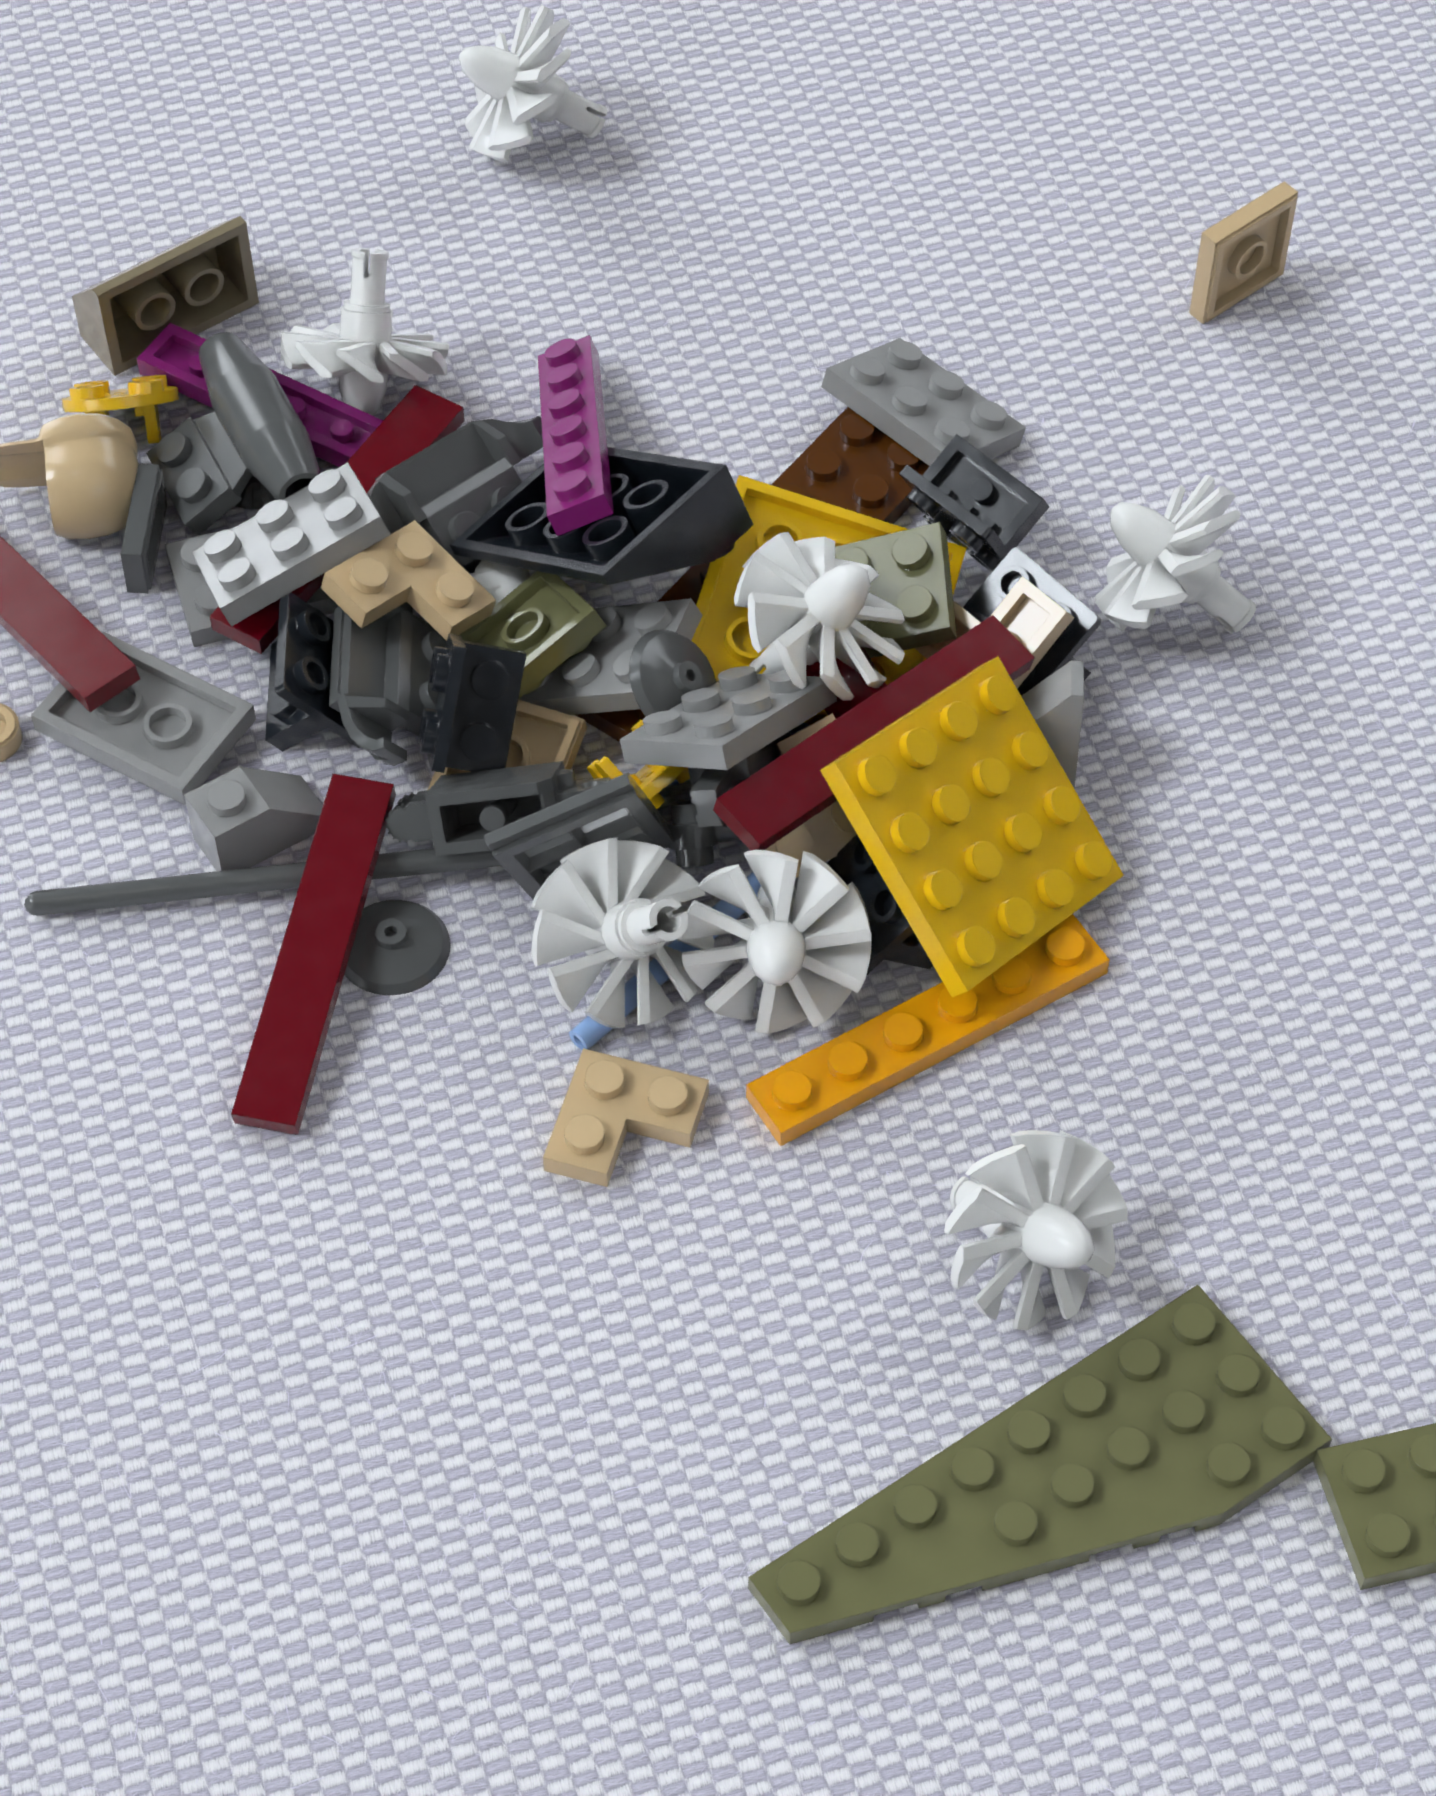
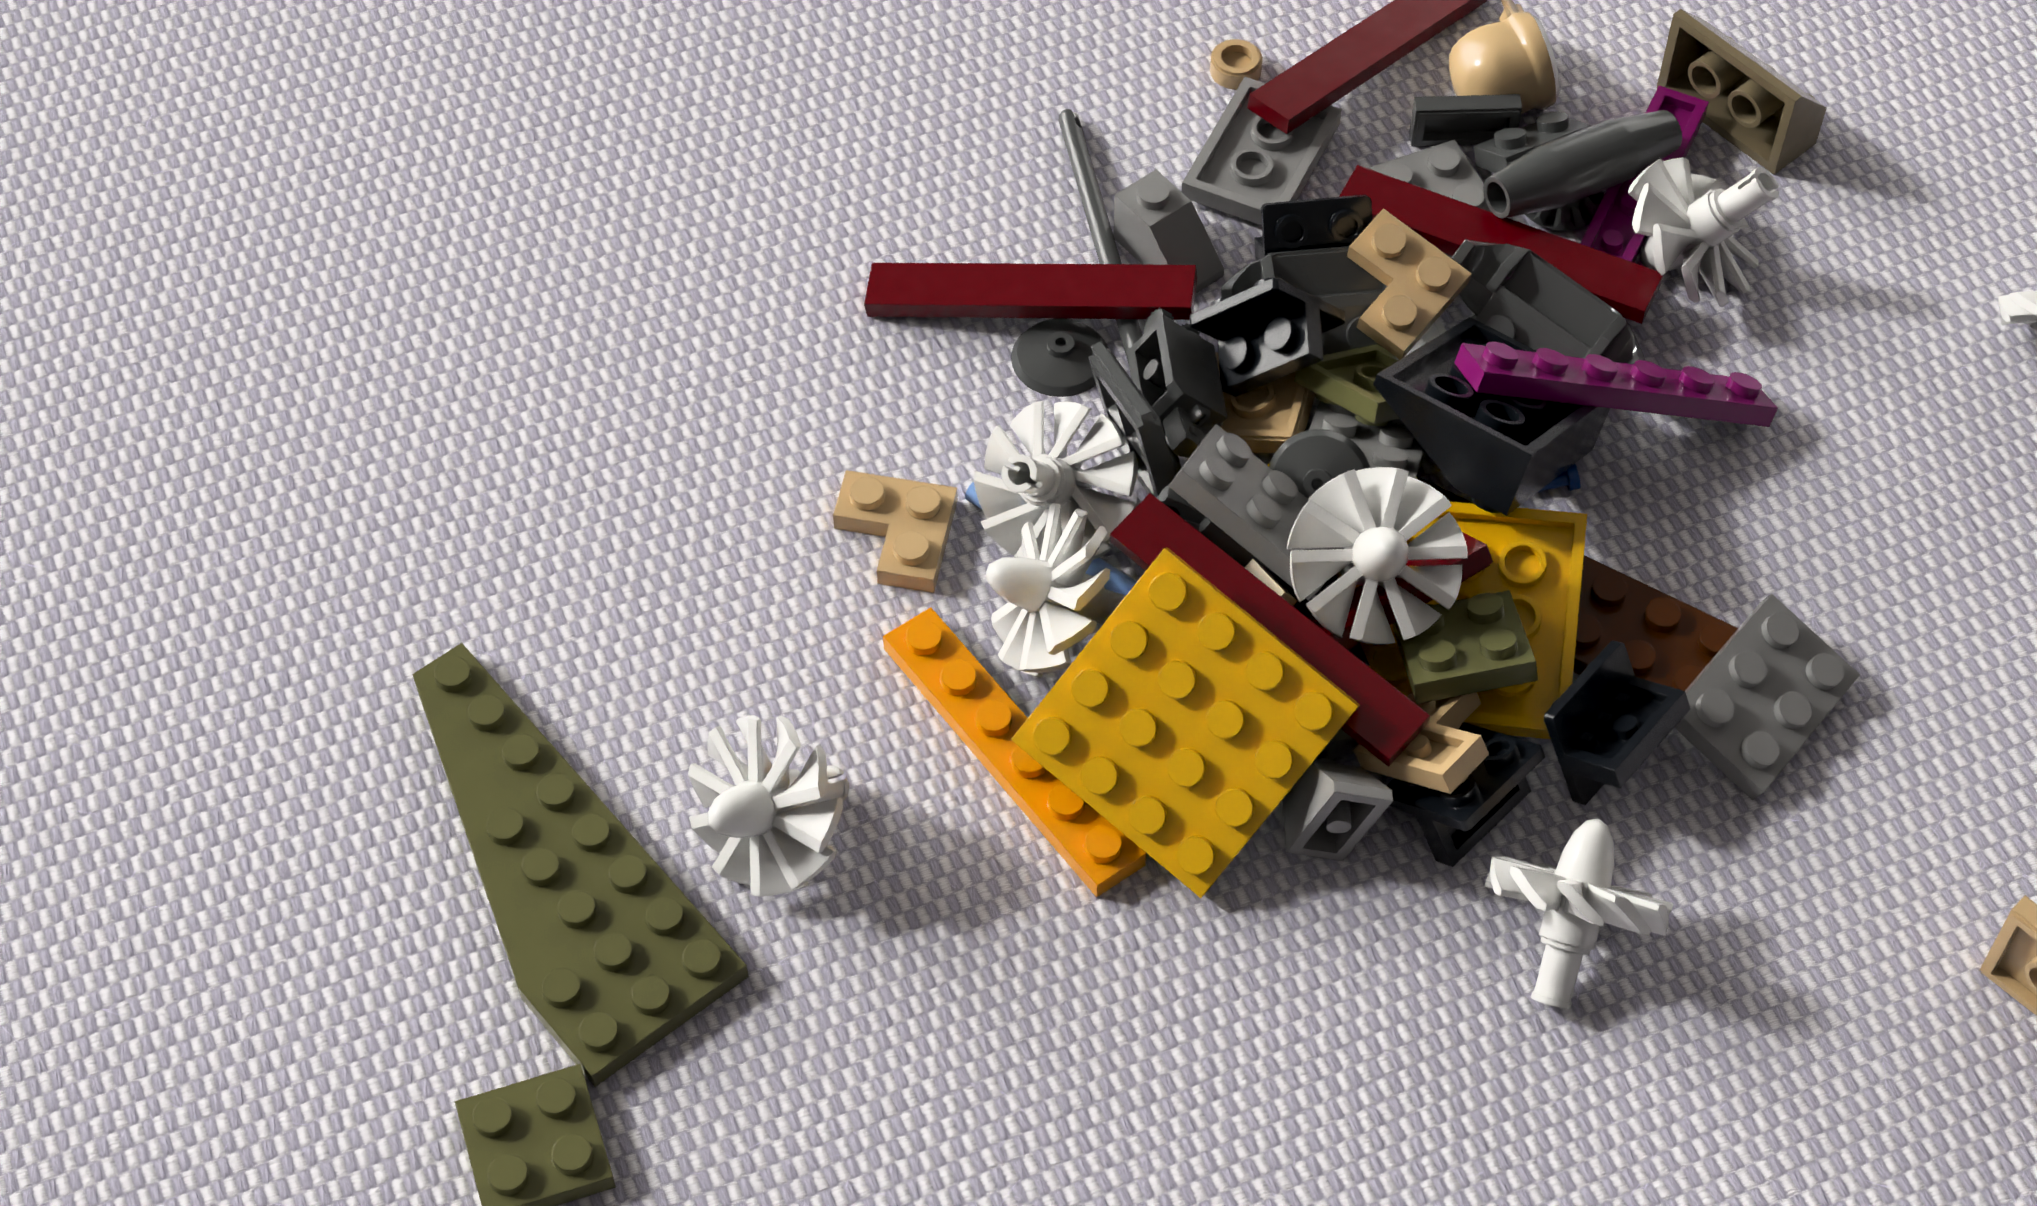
camera: 85 degrees right, 0 degrees up
(142, 394) = (1602, 77): yellow plate -> none
(289, 543) = (1433, 195): light grey plate -> none

